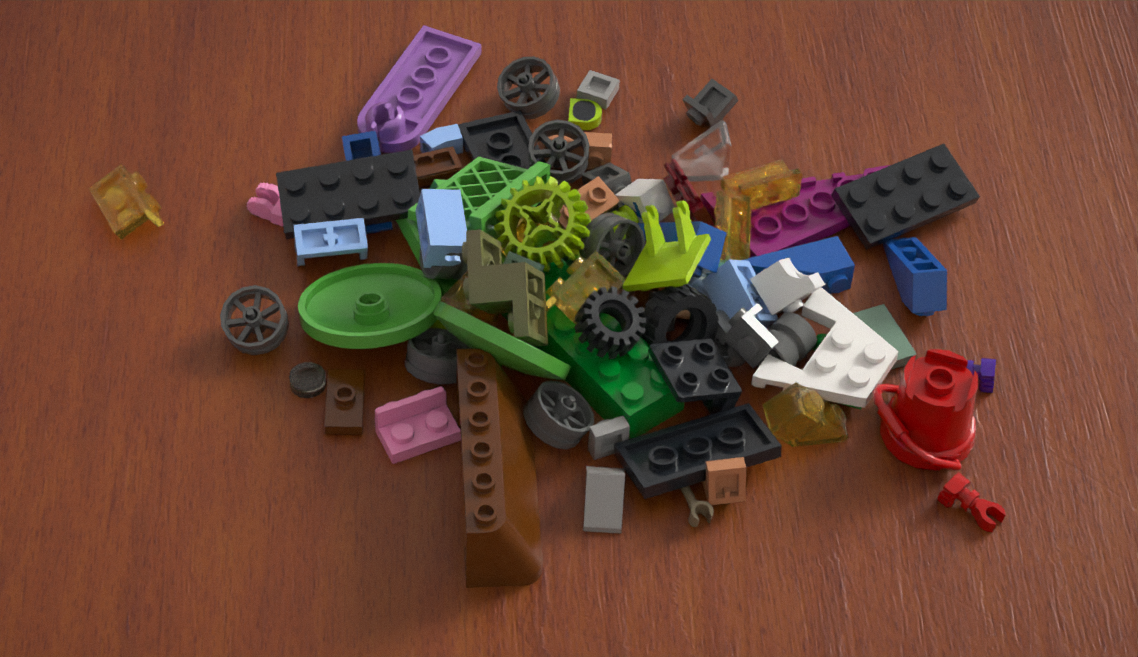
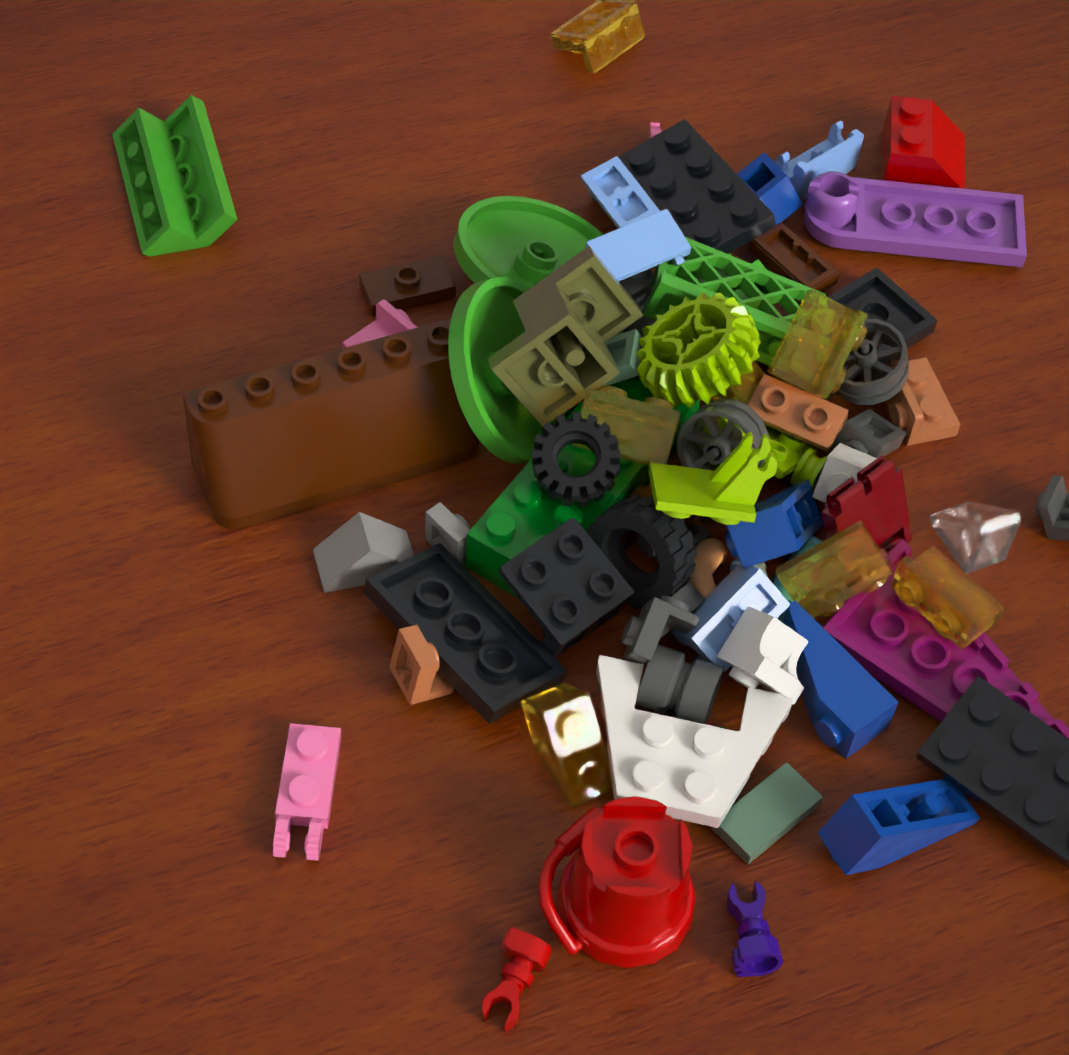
camera: 70 degrees right, 5 degrees up
(155, 523) = (174, 179): none -> bright green slope
(254, 320) = (470, 163): dark grey wheel -> none
(307, 380) = (425, 243): clear smoke tile -> none
(332, 120) = (829, 155): none -> light blue hinge
(348, 66) = (922, 144): none -> red slope
(442, 138) = (847, 261): light blue piece -> none
(520, 73) = (974, 318): dark grey wheel -> none
(555, 155) = (818, 345): none -> clear yellow bracket
(558, 415) = (453, 471): dark grey wheel -> none
(585, 113) = (980, 391): tile -> none
(598, 88) = (1029, 392): light grey plate -> none
(696, 507) = (375, 653): dark tan hand -> none
(795, 581) = (306, 786): none -> bright pink hinge

